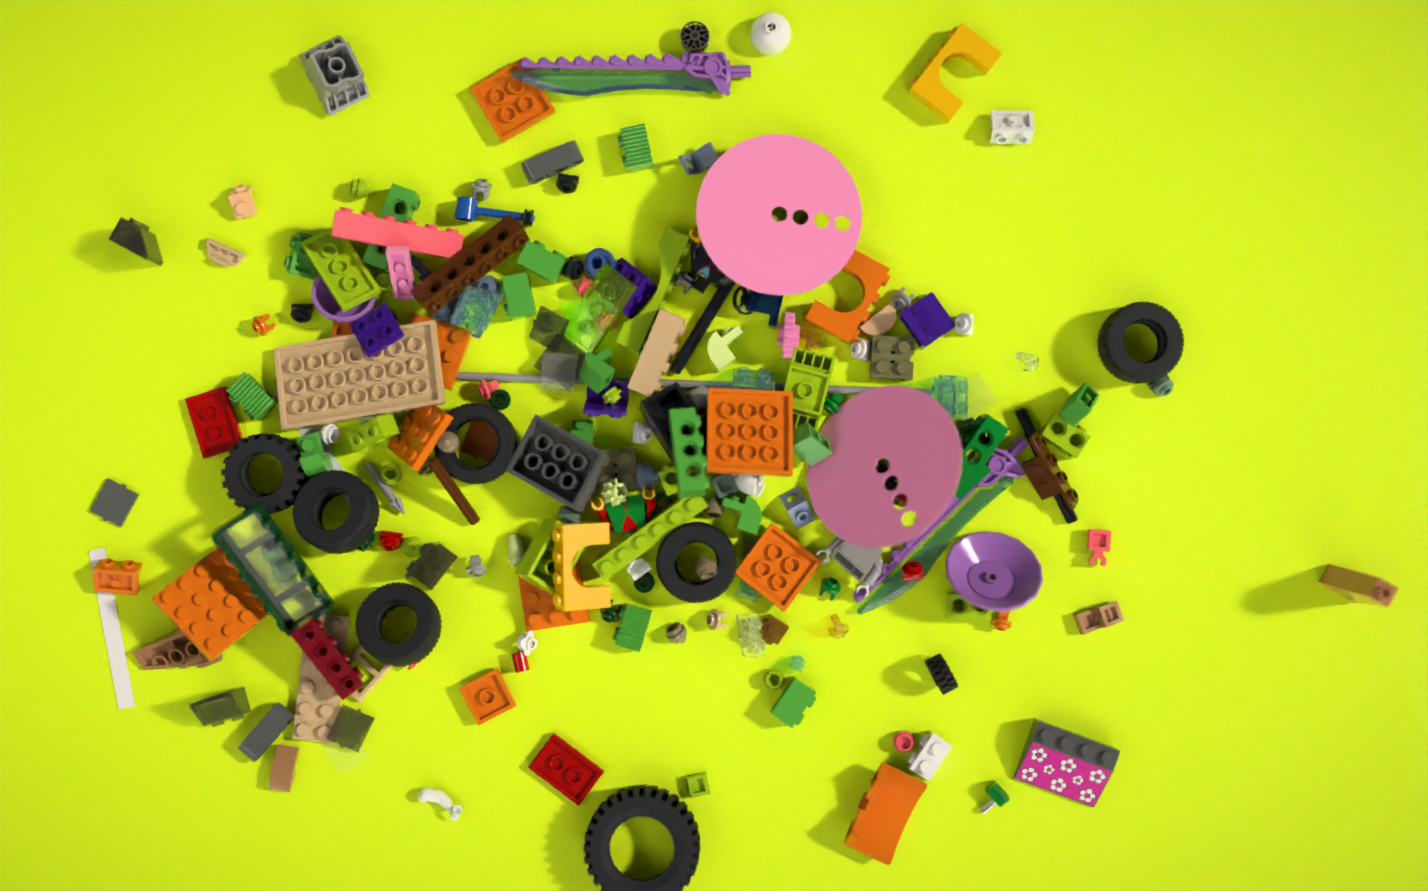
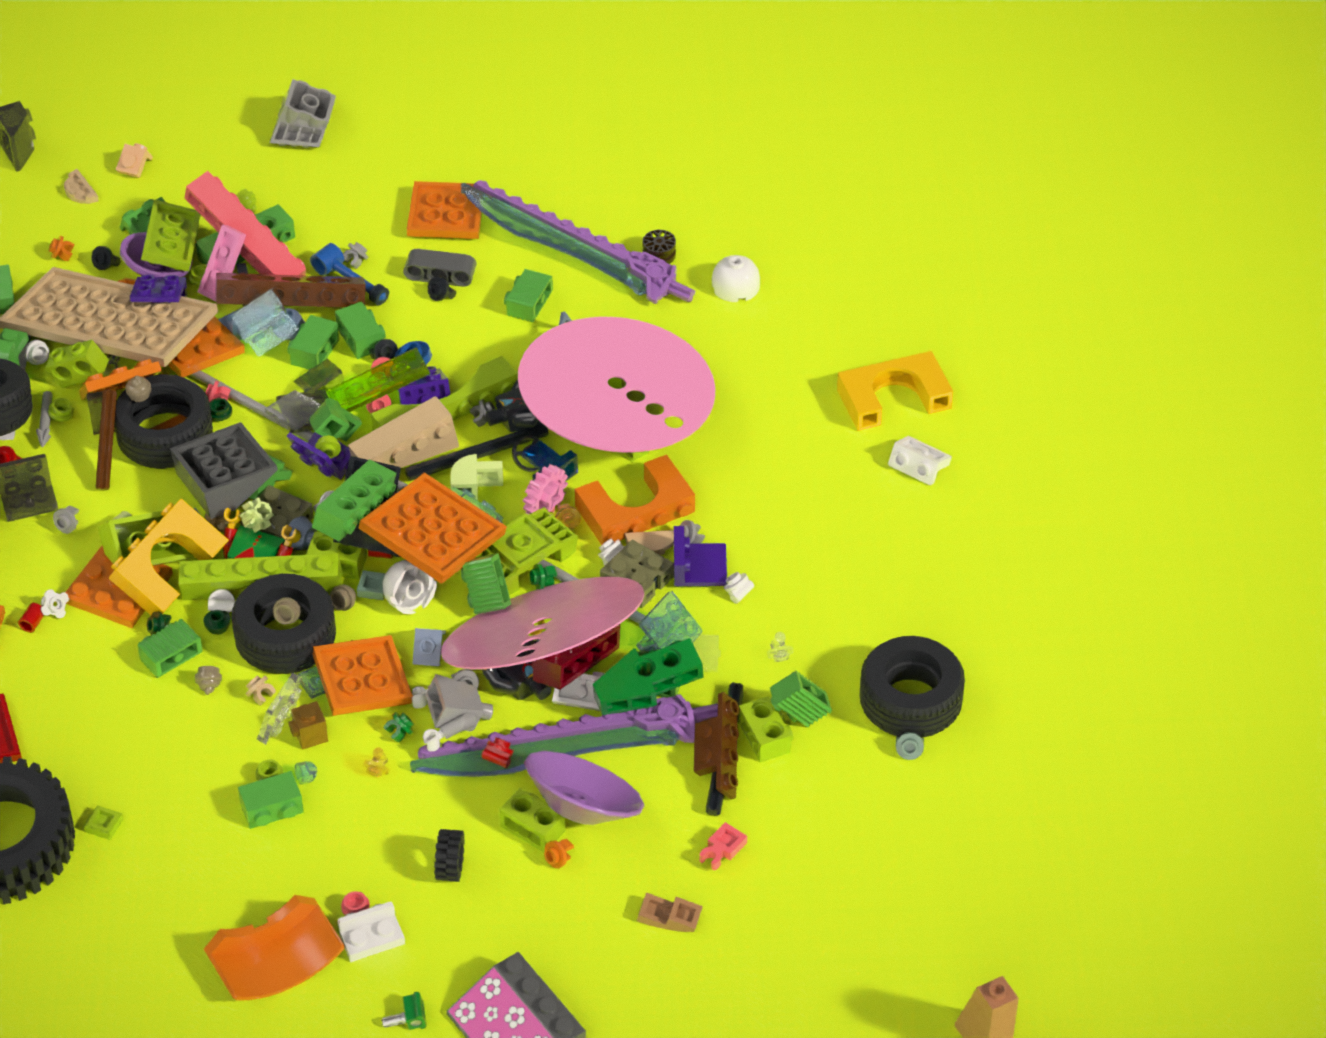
camera: 30 degrees right, 40 degrees down
(751, 513) = (373, 615): bright green brick -> none

